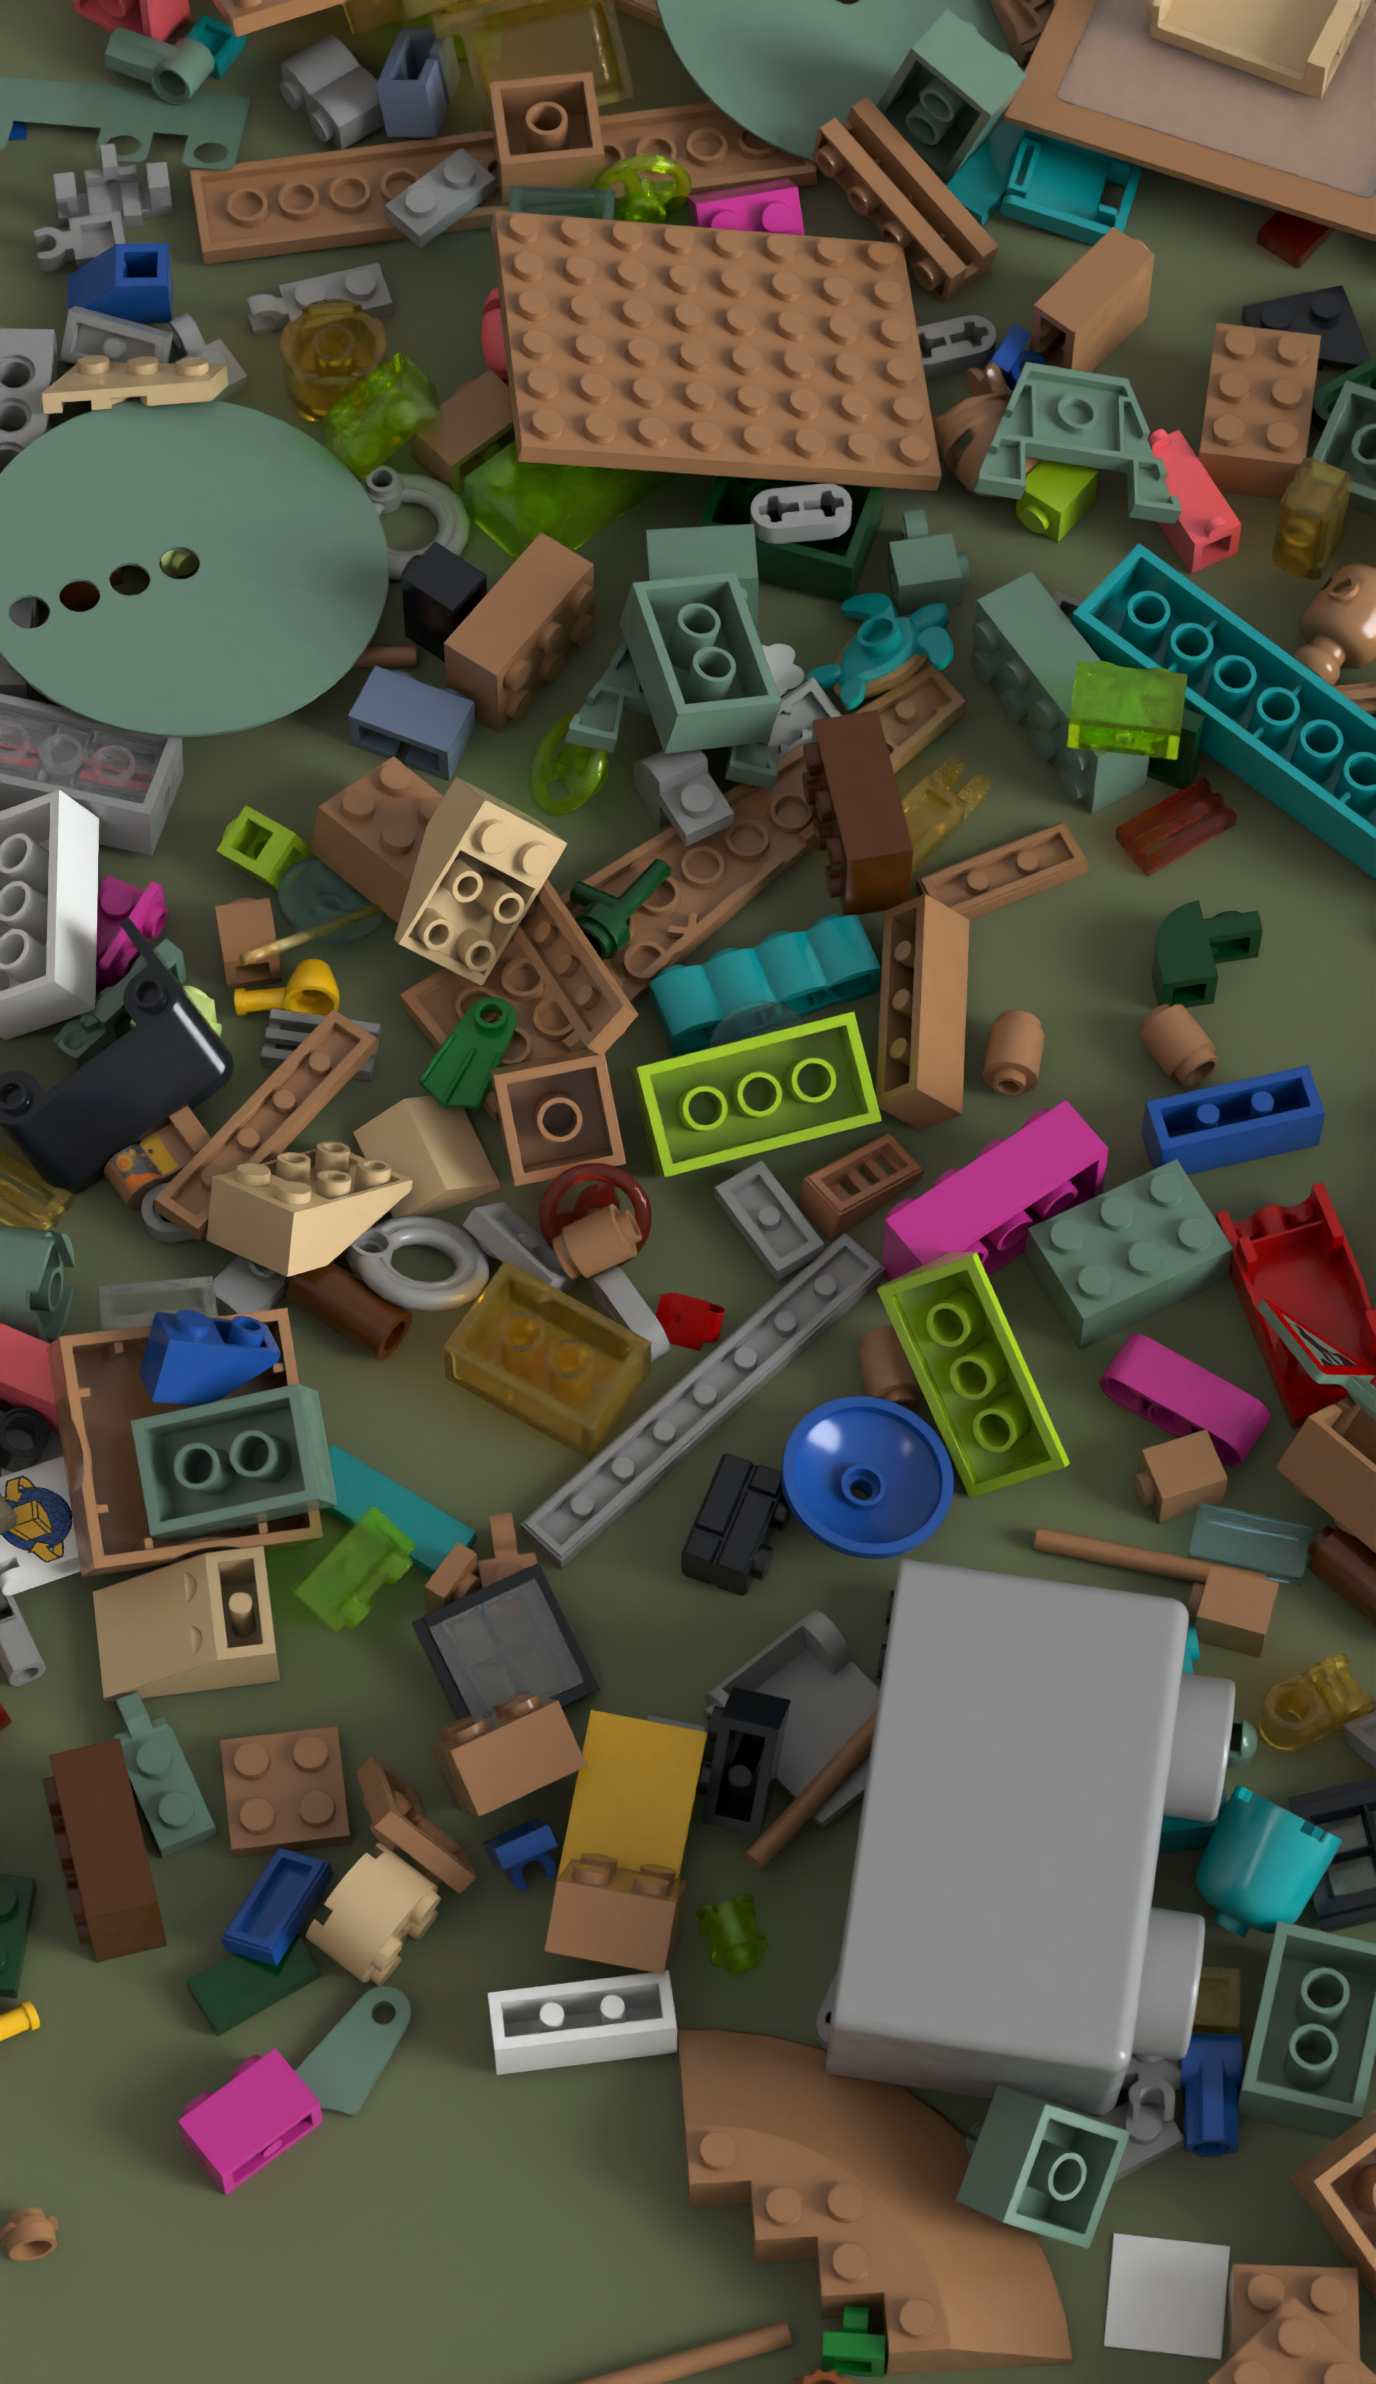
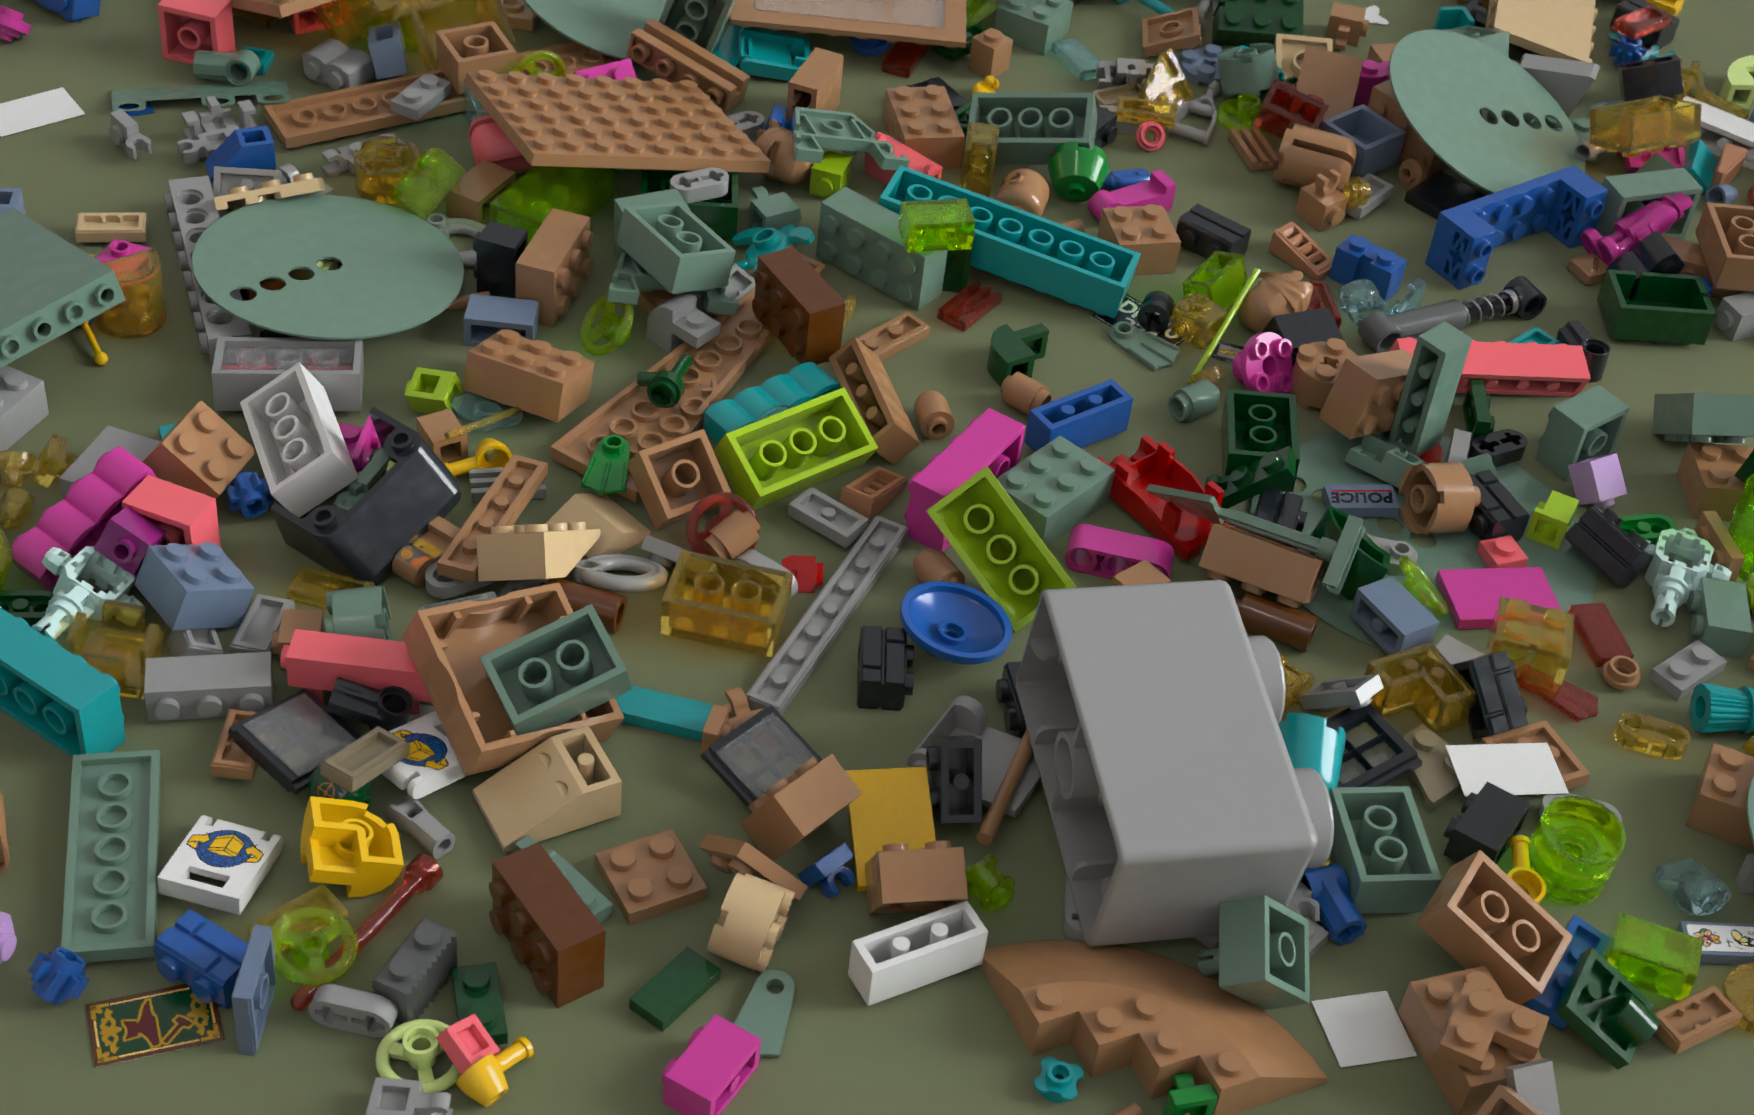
camera: 25 degrees left, 20 degrees down
(202, 1357) = (513, 612): blue slope -> none
(277, 1906) = (676, 938): blue tile -> none
(353, 1569) = (650, 732): clear neon green brick -> none
(474, 880) = (584, 363): tan slope -> none
(574, 972) = (651, 394): medium nougat plate -> none
(704, 2276) = (1058, 1089): none -> teal plate

